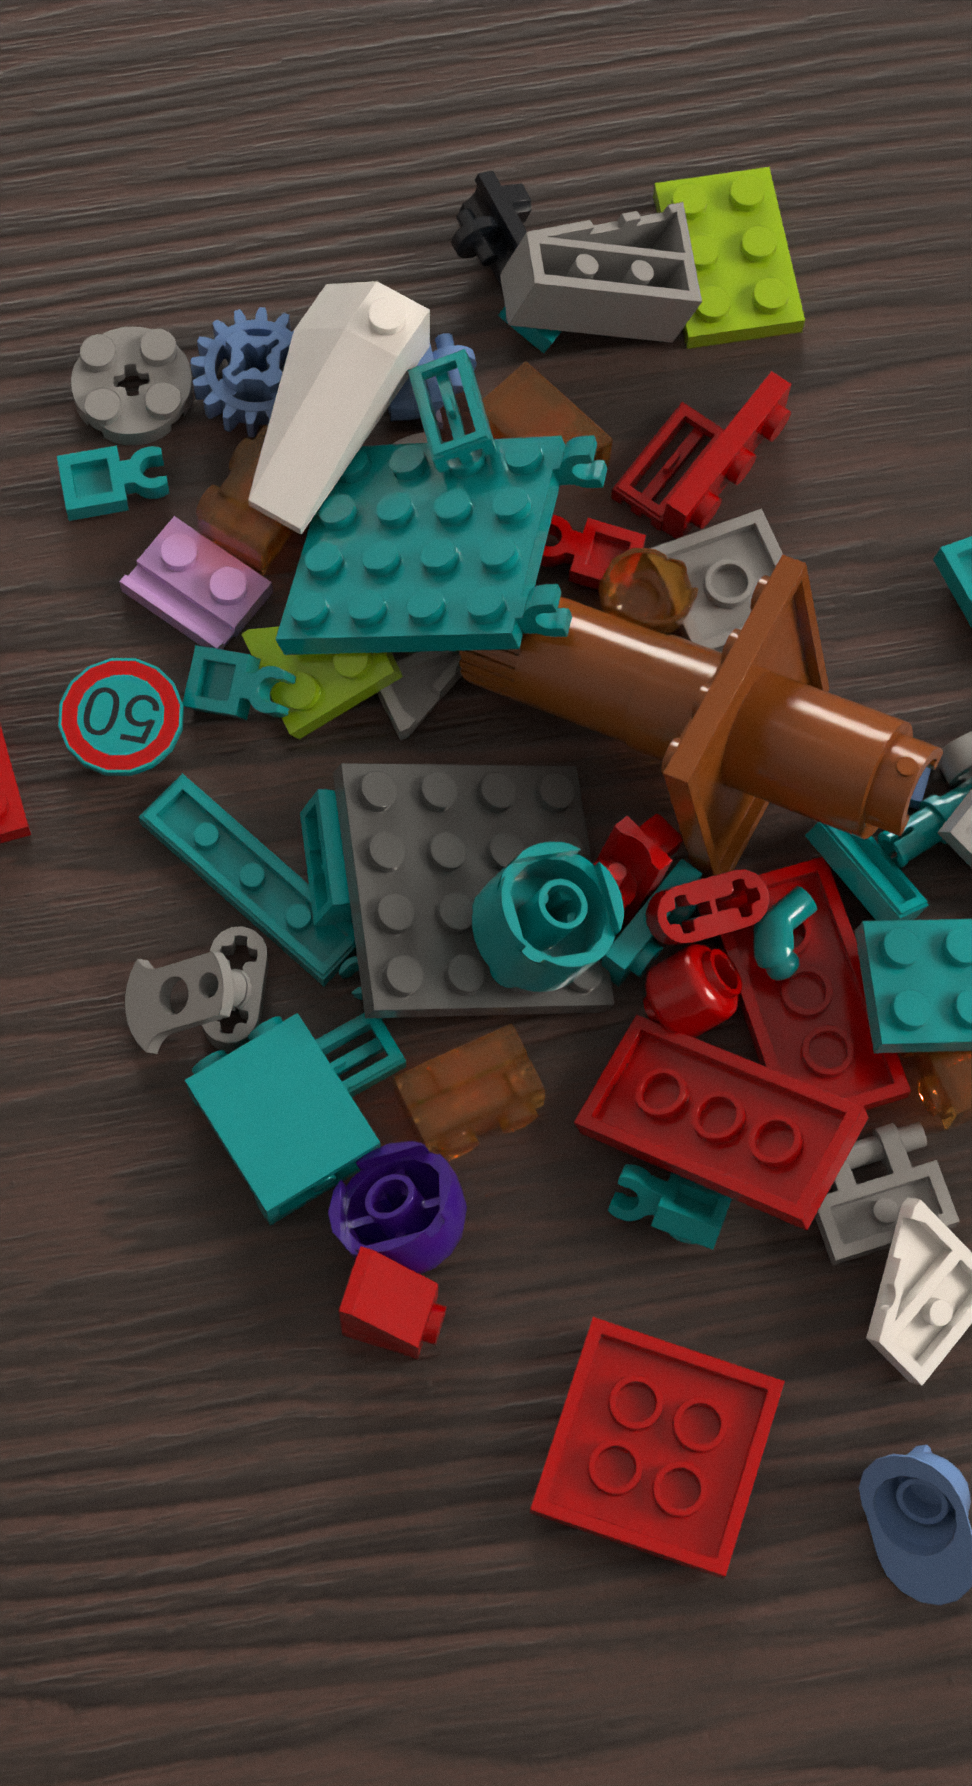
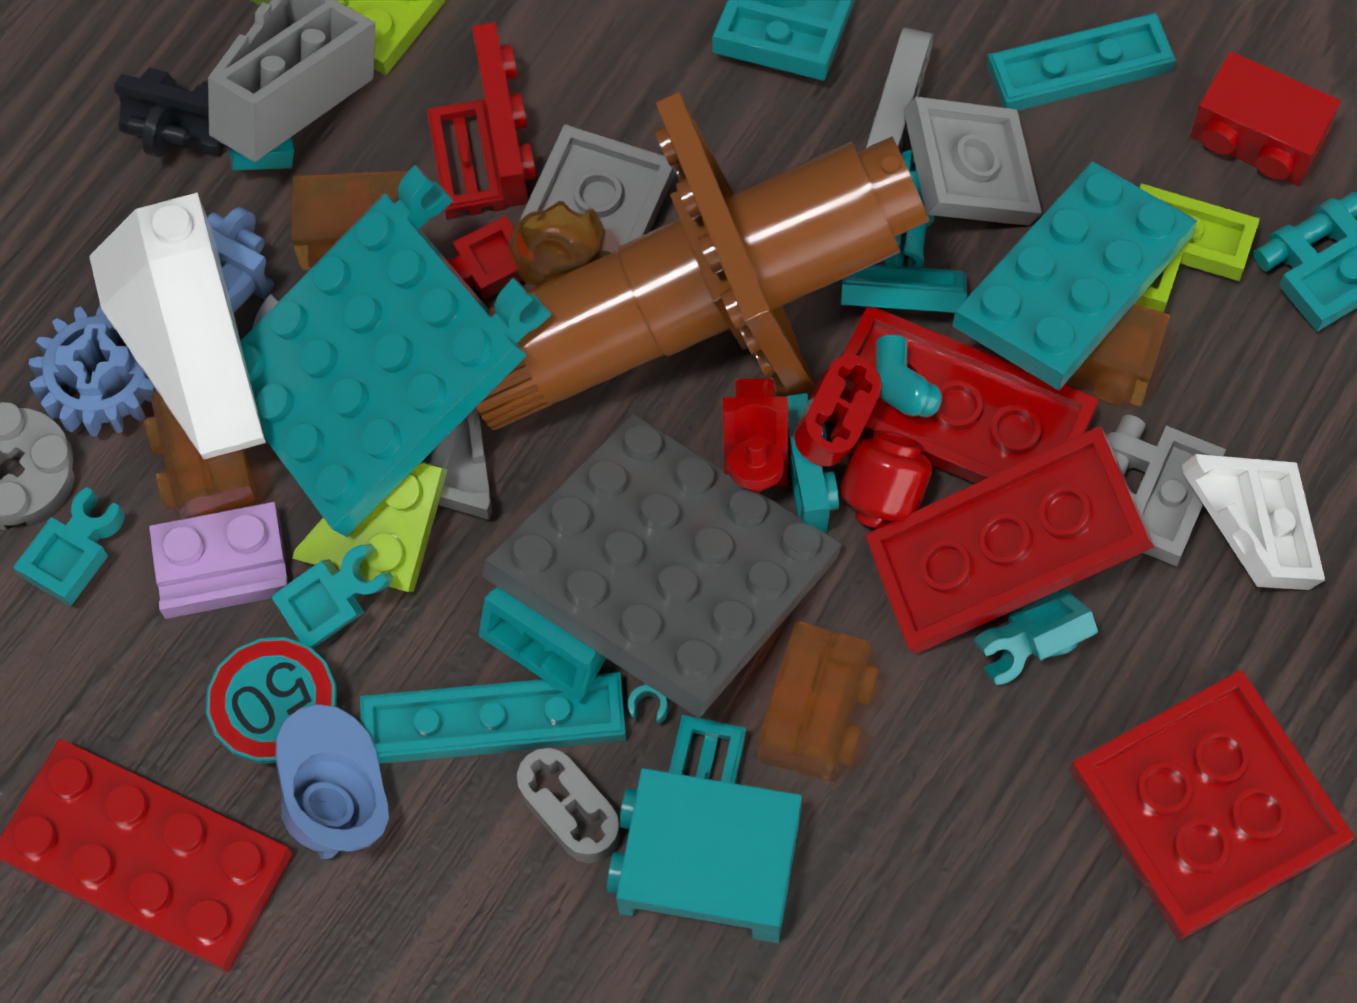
camera: 40 degrees left, 5 degrees down
(96, 809) = (329, 781): none -> medium blue piece
(212, 995) = (515, 874): light grey piece -> none
(390, 1305) = (933, 901): red slope -> none
(401, 1206) = (867, 826): dark purple cylinder -> none
(463, 444) = (319, 267): teal tile -> none
(546, 917) = (748, 519): teal brick -> none

